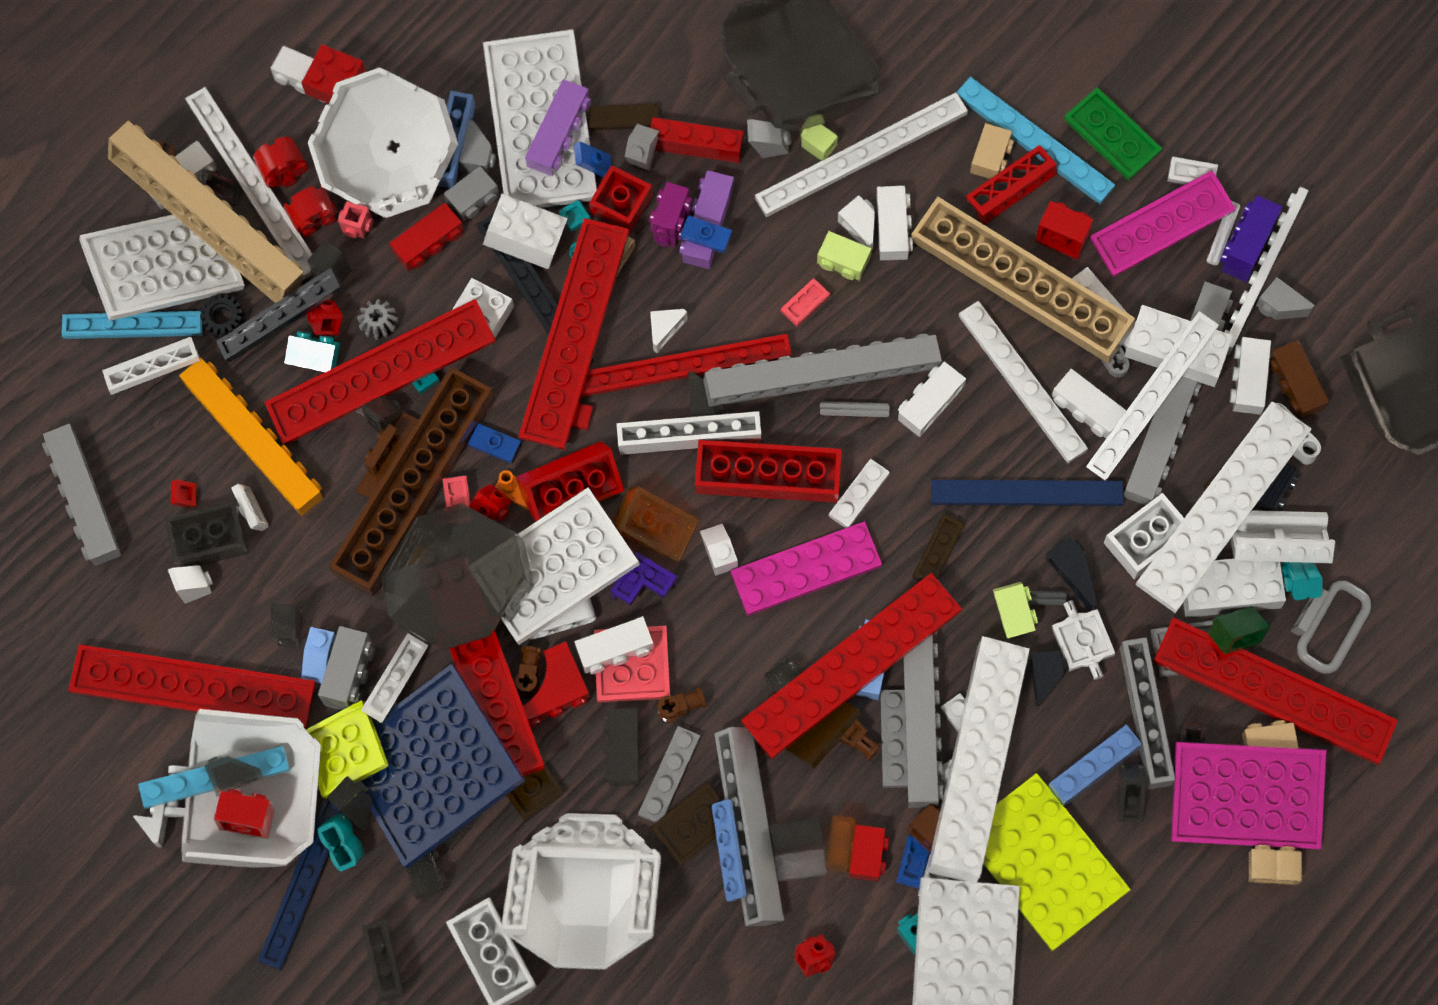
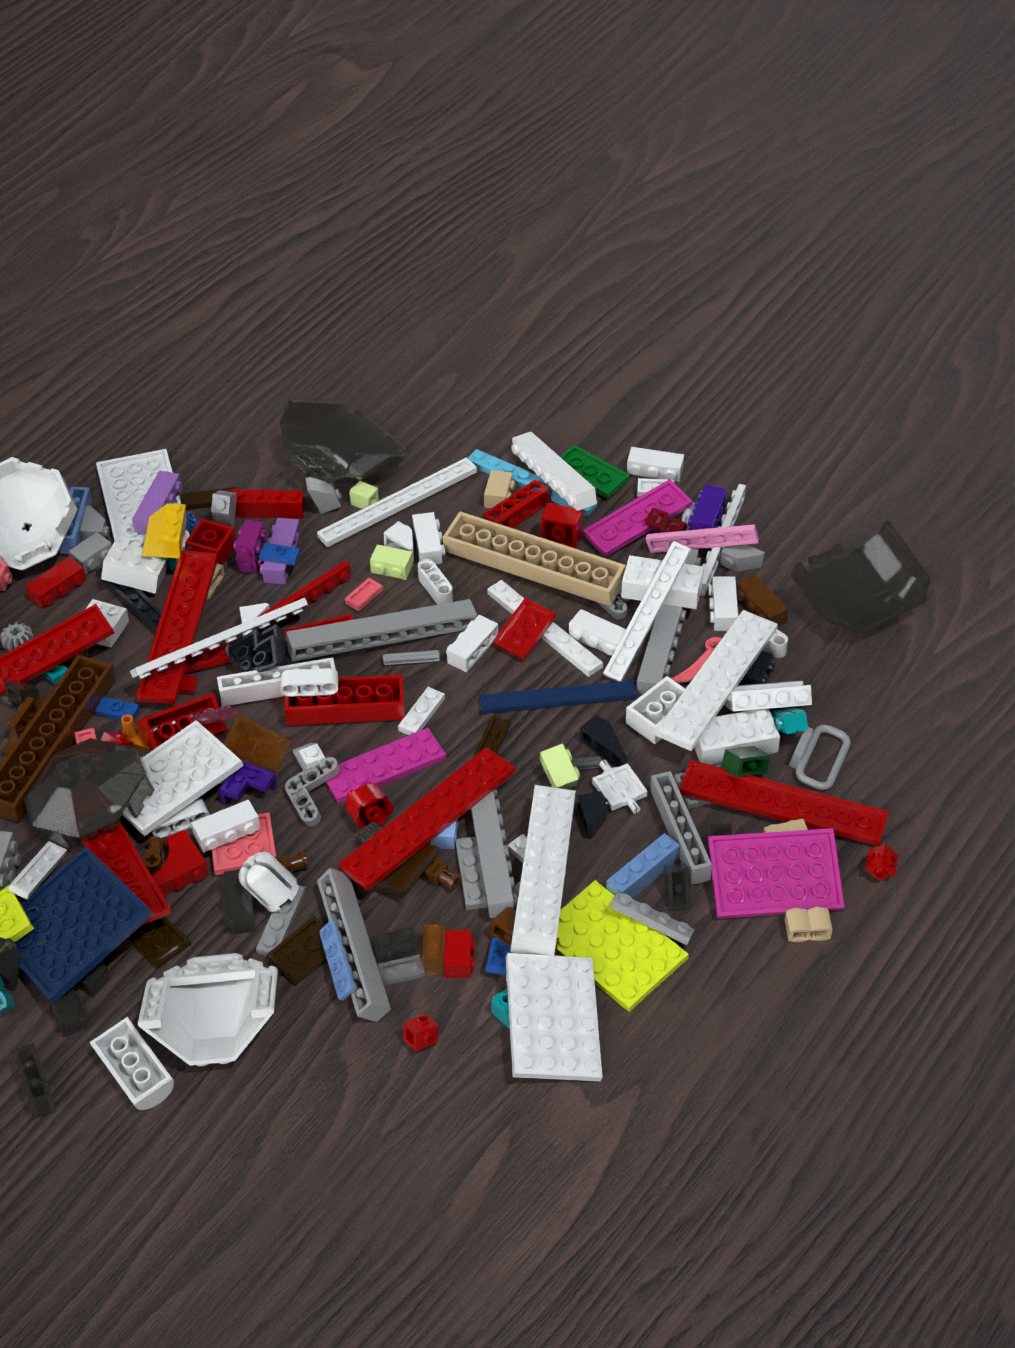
camera: 10 degrees left, 25 degrees down
(565, 191) = (166, 532): none -> yellow slope
(612, 487) = (211, 716): none -> clear pink plate
(617, 368) = (213, 641): none -> white plate
(656, 739) = (268, 880): none -> white cylinder
(670, 390) = (258, 650): none -> black brick
(707, 597) = (302, 790): none -> light grey beam
(725, 304) = (314, 589): none -> red plate
(727, 452) = (309, 682): none -> white beam
(783, 636) = (368, 804): none -> red brick
(892, 286) = (434, 582): none -> white beam
(998, 388) = (524, 629): none -> red plate
(1065, 142) = (554, 471): none -> white brick
(1095, 837) = (656, 920): none -> light grey plate
(1196, 242) = (663, 522): none -> dark red slope
(1197, 133) = (655, 464): none -> white brick
(1204, 474) = (690, 672): none -> coral piece
(1244, 278) = (704, 538): none -> bright pink plate
(1376, 794) = (882, 862): none -> red brick

